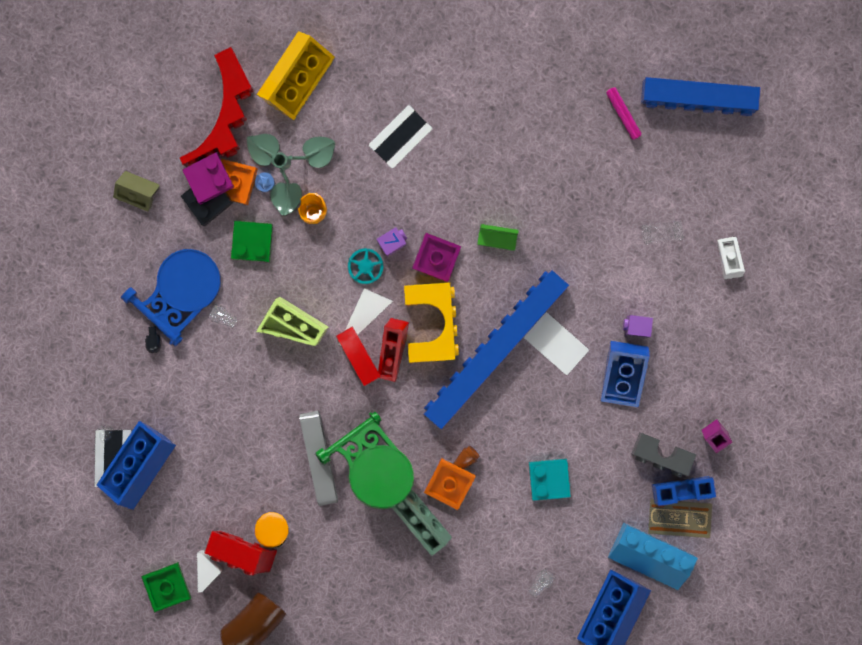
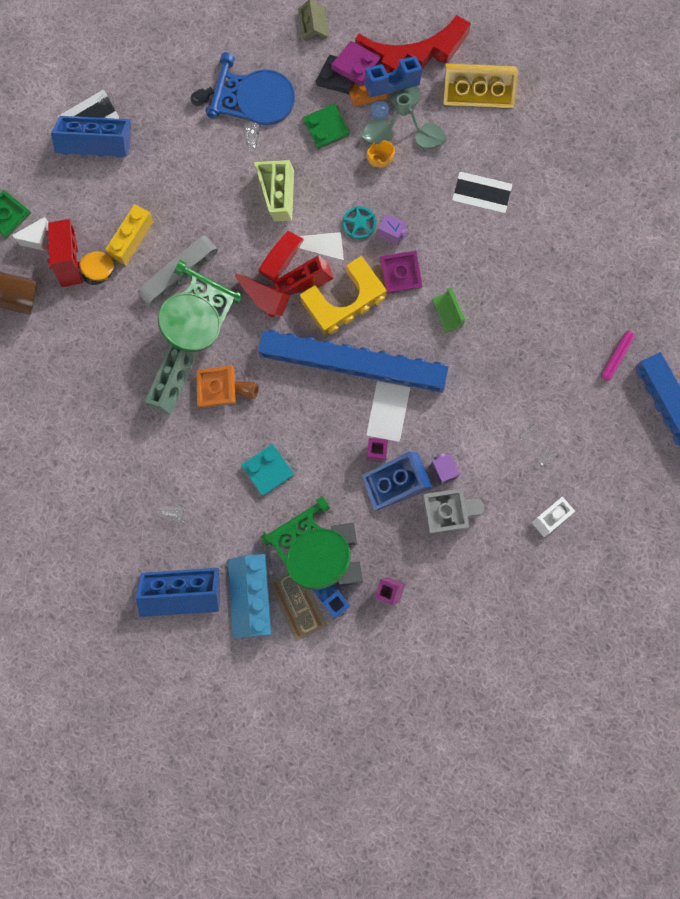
camera: 65 degrees right, 10 degrees down
(244, 168) = (405, 76): none -> blue arch
(258, 483) = (130, 234): none -> yellow brick
(388, 394) = (264, 296): none -> red slope
(590, 376) = (377, 450): none -> magenta brick
(656, 483) = (317, 556): none -> green piece
(677, 344) = (449, 513): none -> light grey brick

